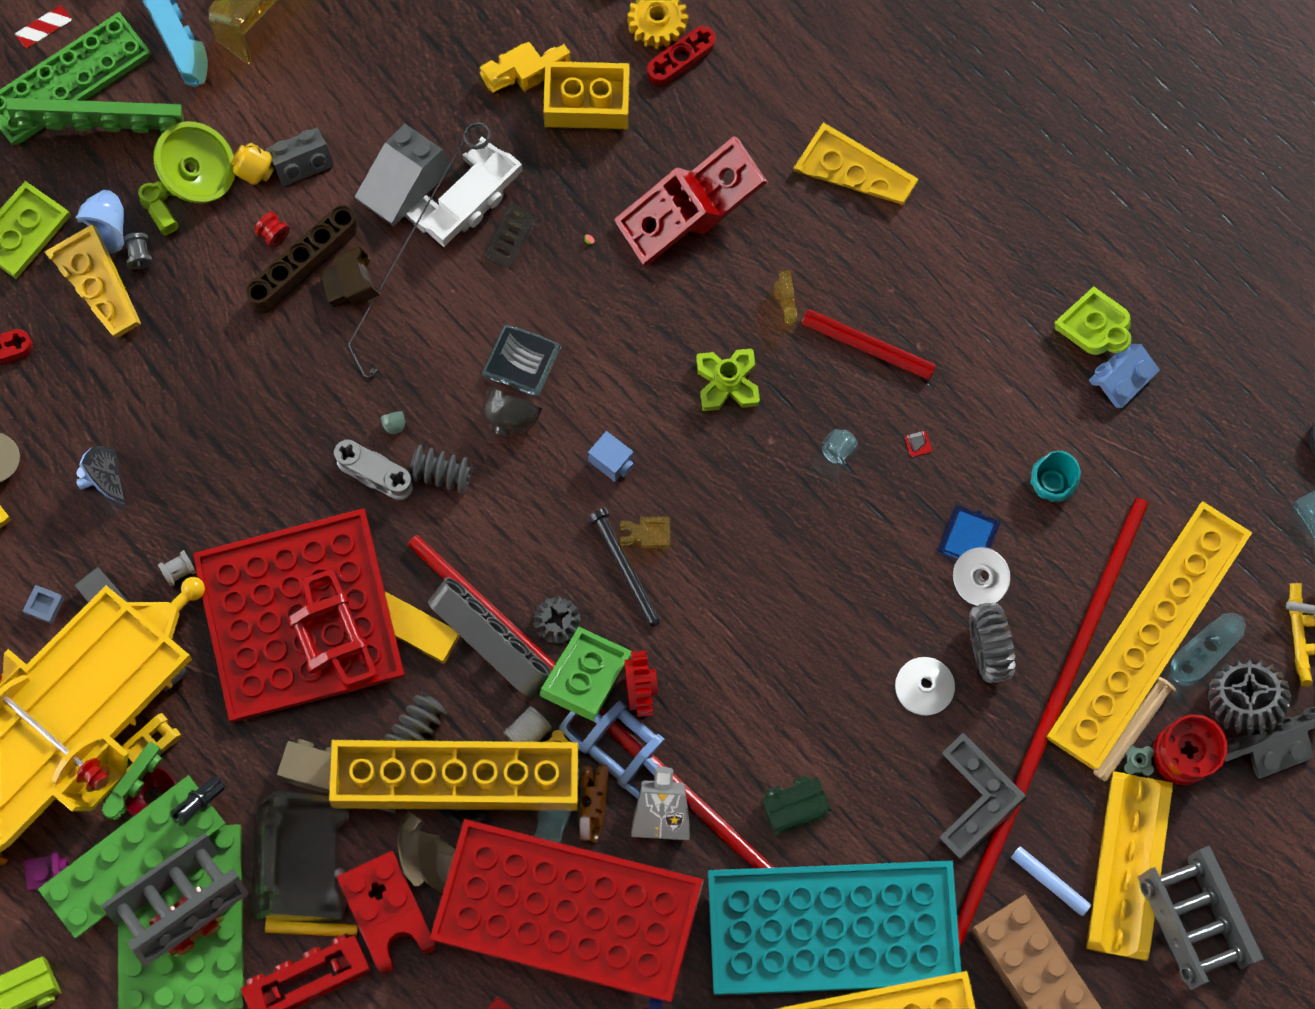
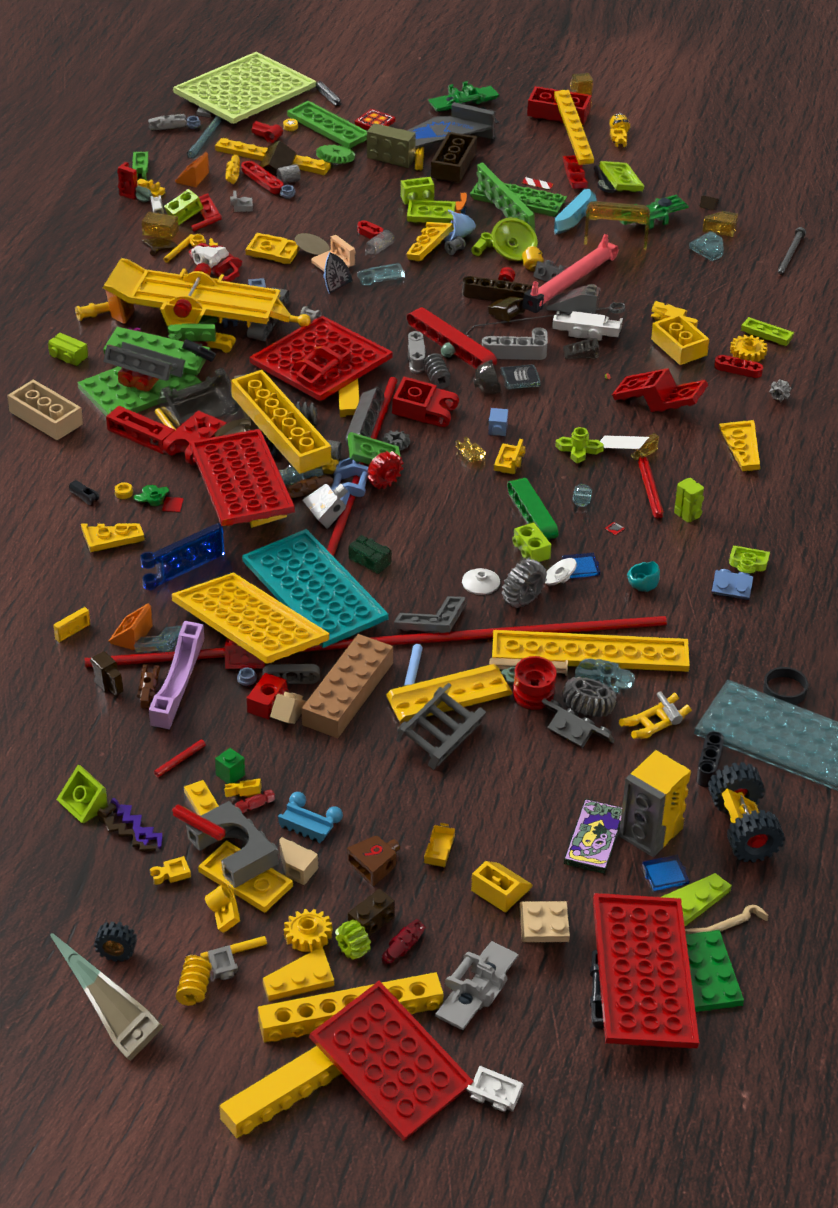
camera: 60 degrees right, 30 degrees down
(45, 181) = (461, 206): none -> orange slope
(50, 447) = (339, 248): none -> light nougat bracket
(59, 358) = (379, 243): none -> clear brick
(136, 399) = (380, 273): none -> clear light blue hinge
(342, 145) = (535, 298): none -> coral piece
(371, 401) = (443, 333): none -> red beam
(446, 323) = (518, 347): none -> light grey beam
(510, 526) = (424, 402): none -> red brick
(600, 518) = (462, 432): black bar -> none
(700, 490) = (510, 457): none -> yellow bracket
(762, 321) = (625, 442): none -> white sticker
(776, 43) = (780, 390): none -> light grey gear
(827, 529) = (532, 507): none -> green beam
(900, 567) = (532, 542): none -> lime brick
(948, 321) = (689, 500): none -> lime brick

